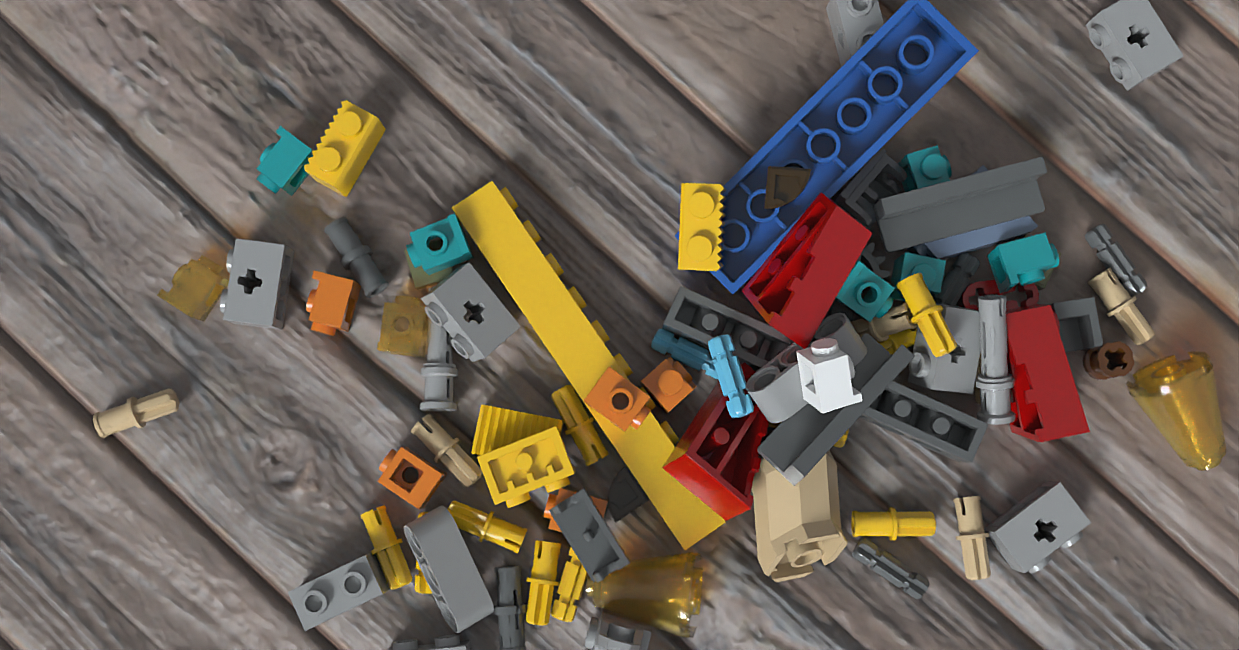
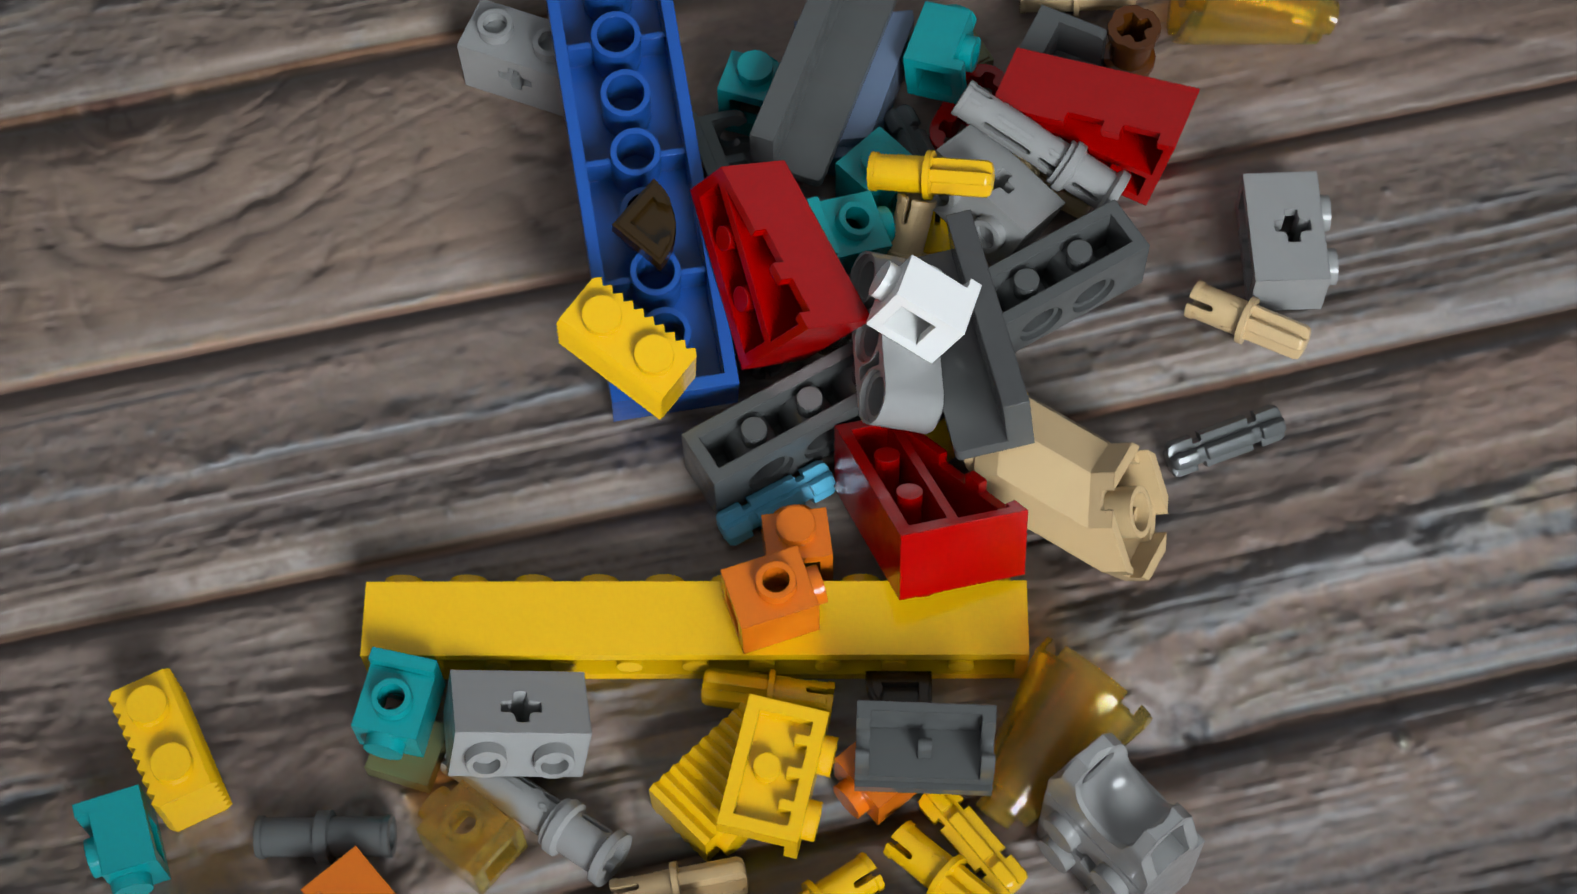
camera: 50 degrees left, 20 degrees down
(730, 376) = (841, 438): medium azure axle -> none
(893, 523) = (1168, 399): yellow axle -> none

